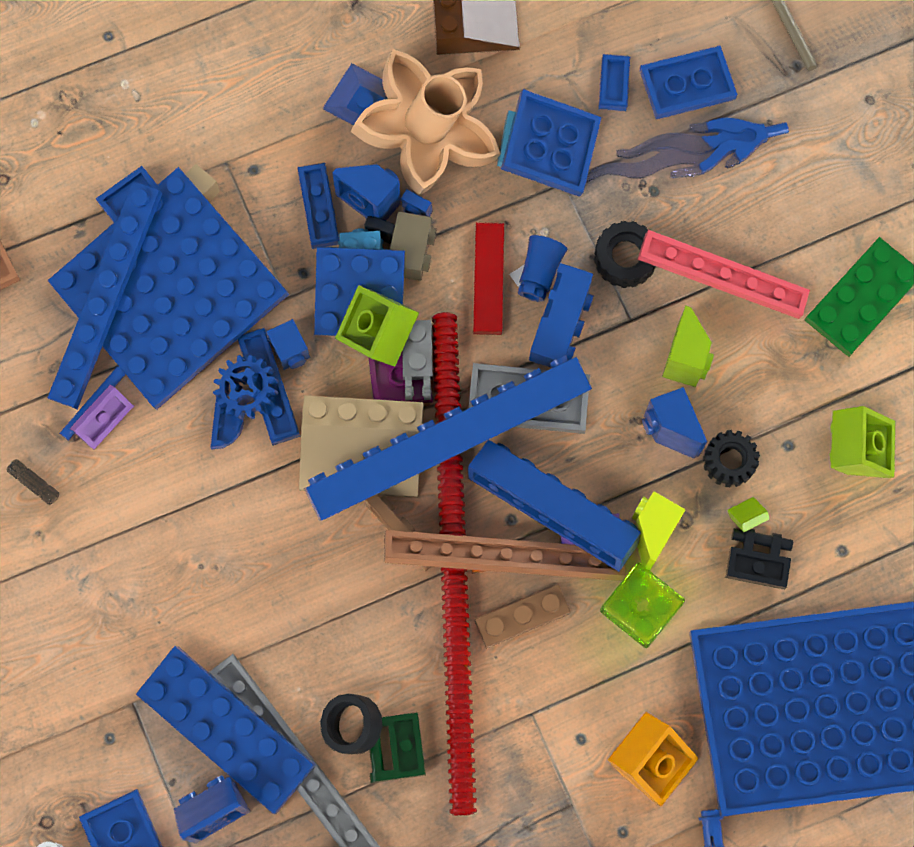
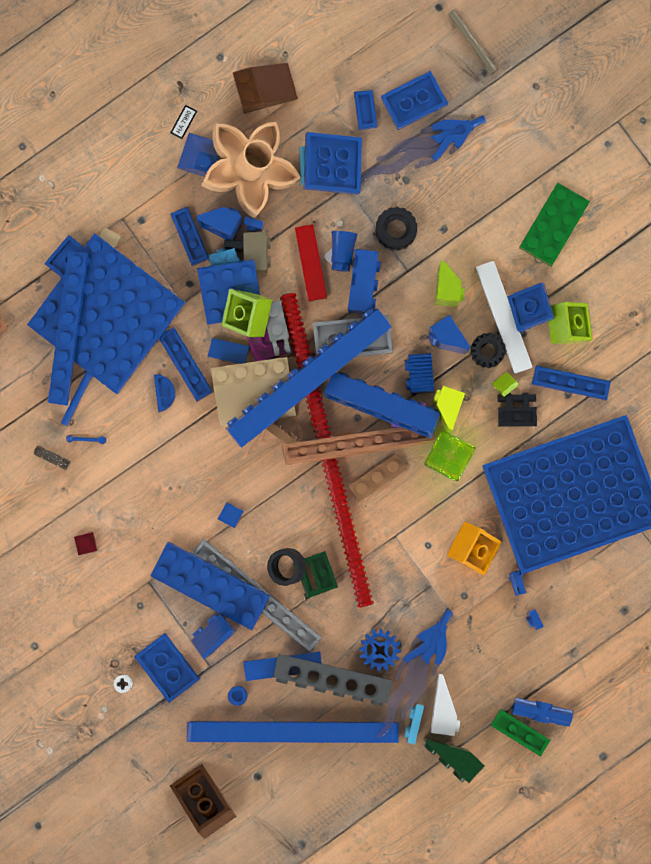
camera: 10 degrees left, 10 degrees up
(50, 623) = (85, 543): none -> dark red plate
(101, 417) = (85, 407): medium lavender plate -> none
(115, 471) = (102, 440): none -> blue hinge
(237, 399) = (174, 362): blue gear -> none
(283, 626) = (230, 515): none -> blue tile
(288, 345) = (192, 335): blue brick -> none
(336, 379) = (228, 351): none -> blue tile
(347, 48) = (183, 122): none -> sticker
(620, 472) = (420, 373): none -> blue brick
(723, 274) = (461, 230): coral plate -> none
(764, 416) = (503, 317): none -> white tile
(809, 406) = (530, 307): none -> blue plate
(850, 534) = (571, 383): none -> blue tile

